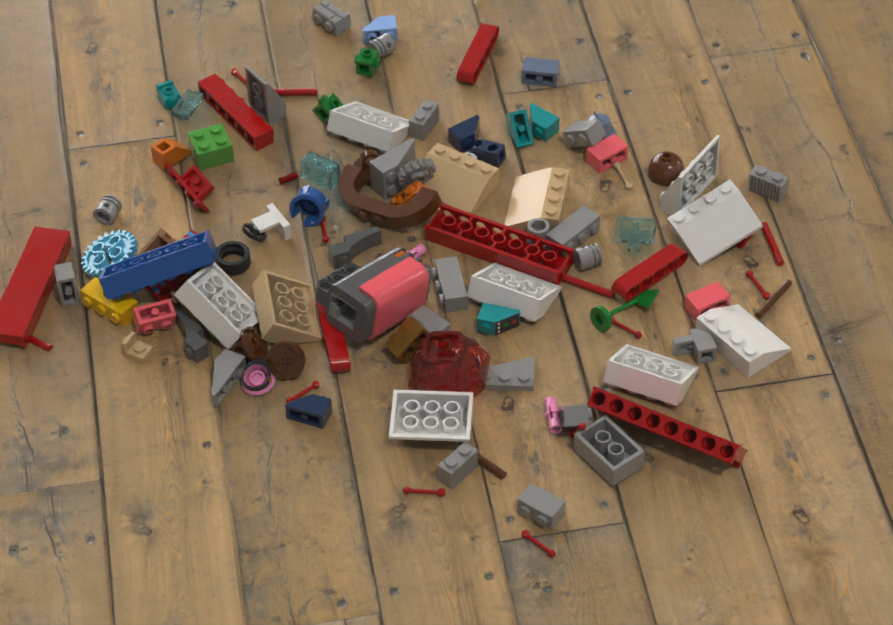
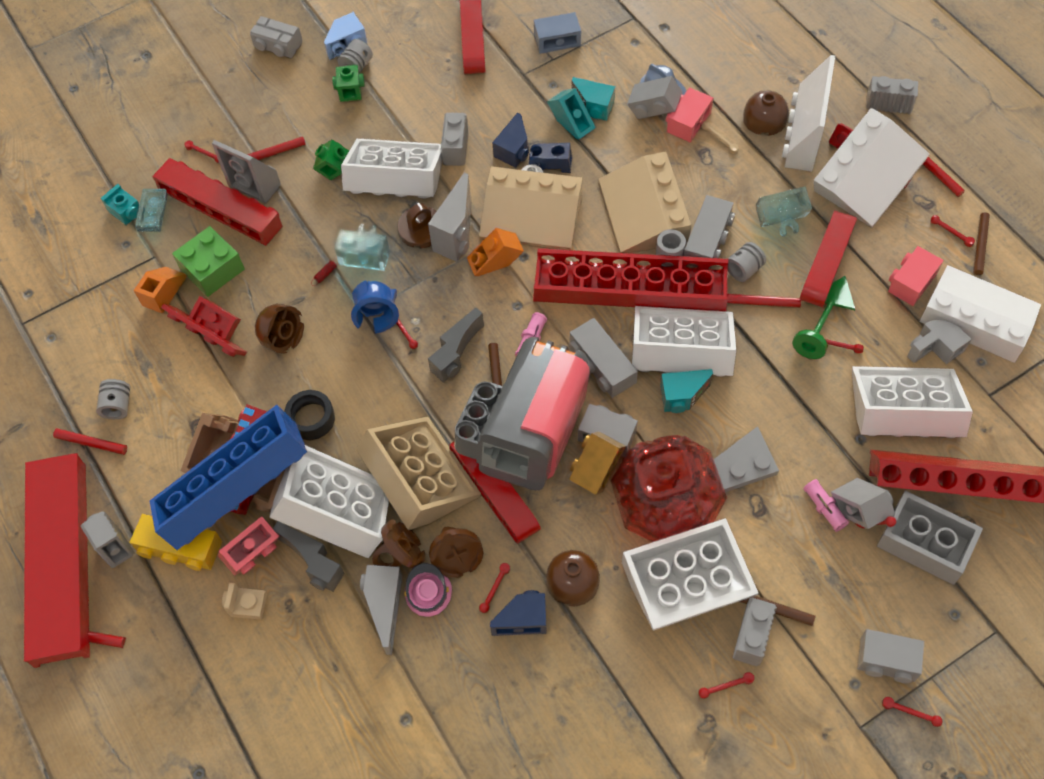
camera: 20 degrees left, 15 degrees up
(81, 231) = (90, 441): none -> red bar
(121, 247) = (145, 468): medium azure gear -> none
(238, 200) = (279, 327): none -> reddish brown cylinder
(264, 222) = (331, 349): white piece -> none
(356, 401) = (573, 578): none -> reddish brown cylinder
(396, 216) = (470, 286): reddish brown arch -> none
(416, 170) = (489, 217): light grey gear -> none

